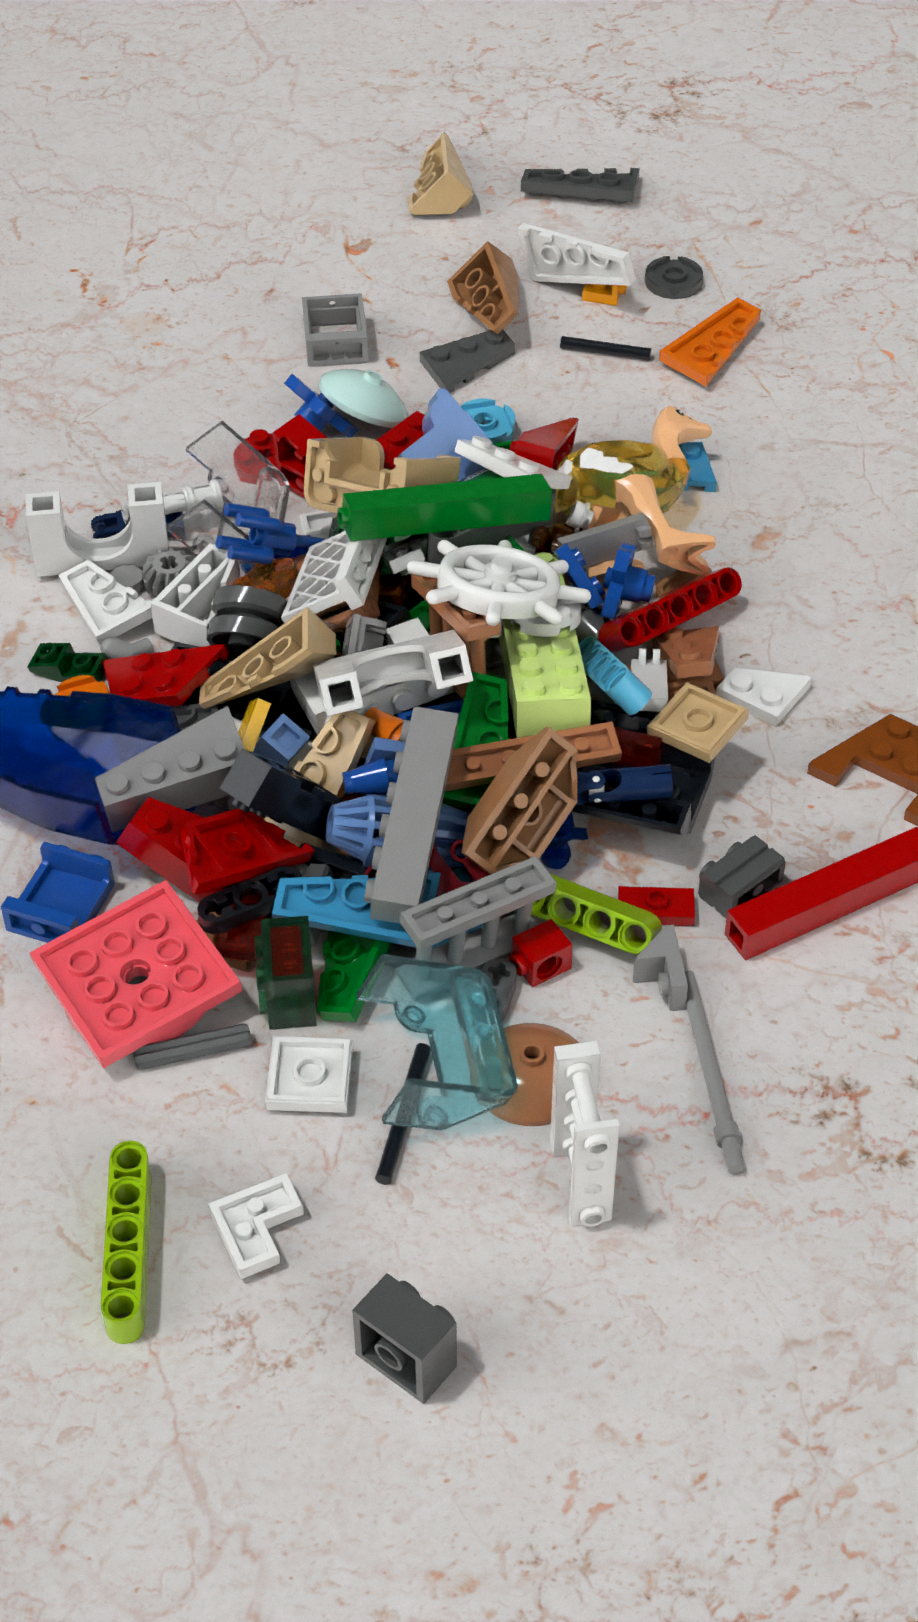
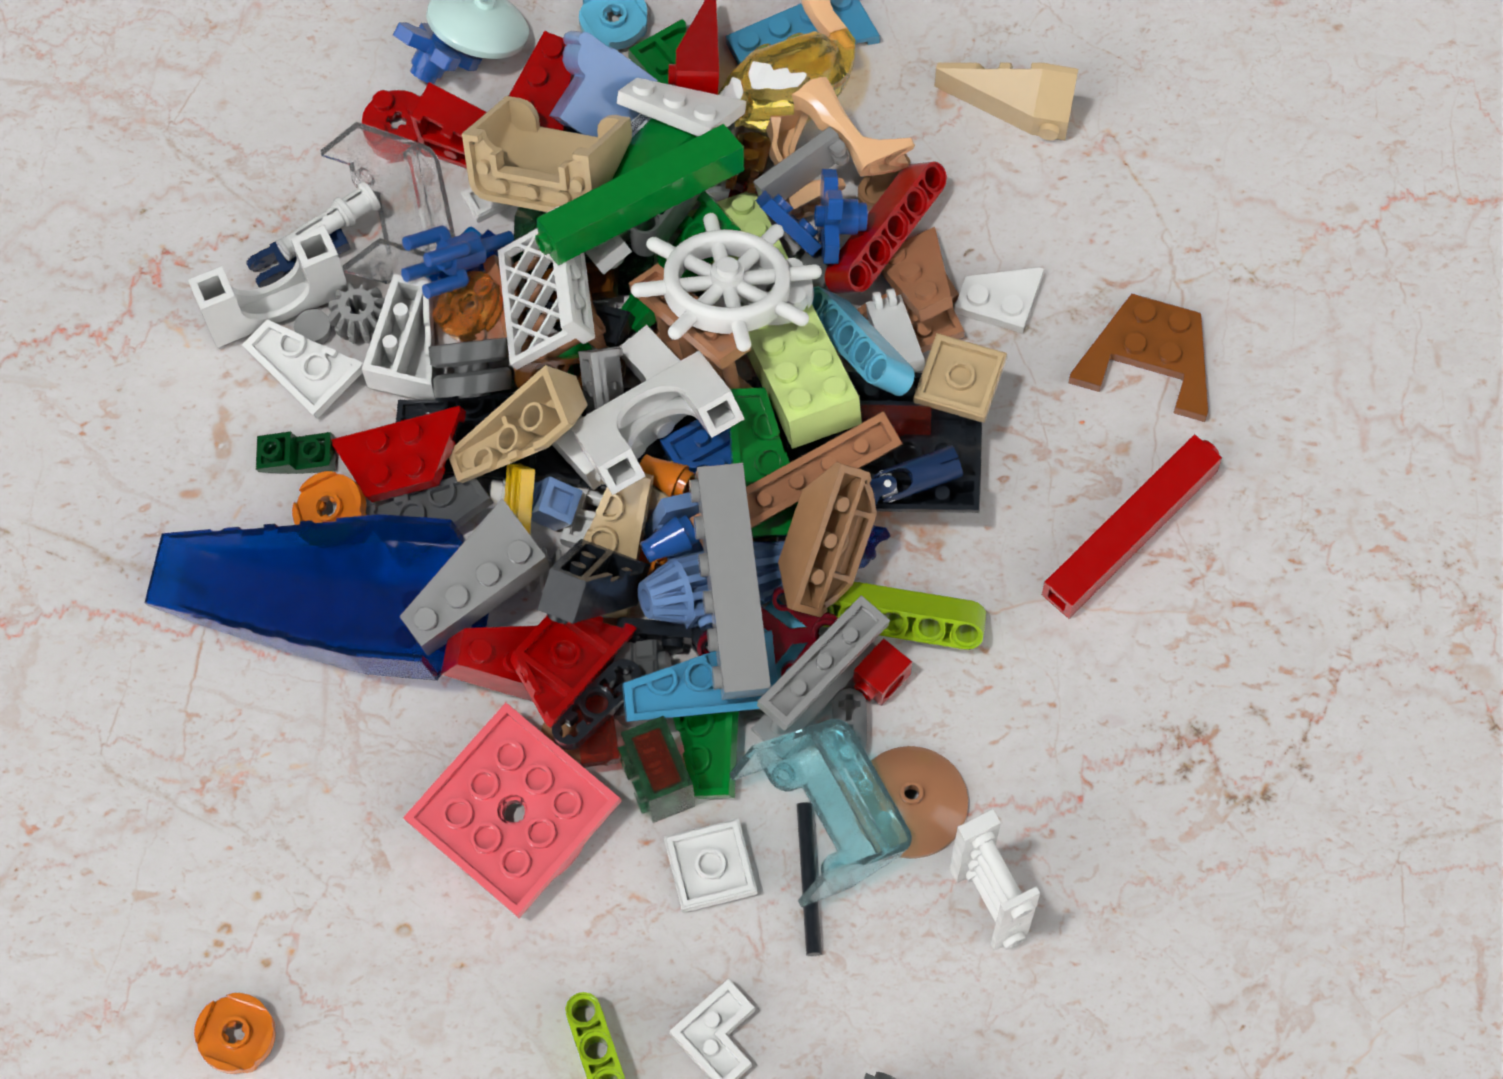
camera: 15 degrees left, 20 degrees up
(60, 895) = (400, 737): blue panel -> none
(119, 648) = (347, 422): light grey arm -> none
(192, 1046) = (592, 865): dark grey axle -> none
(580, 516) = (761, 135): white plate -> none
(663, 963) = (1000, 648): light grey slope -> none
(668, 904) = (973, 581): red plate -> none
(726, 1130) = (1106, 815): light grey bar -> none
(741, 875) = (1042, 531): dark grey brick -> none
(834, 544) = (1029, 99): none -> tan wedge

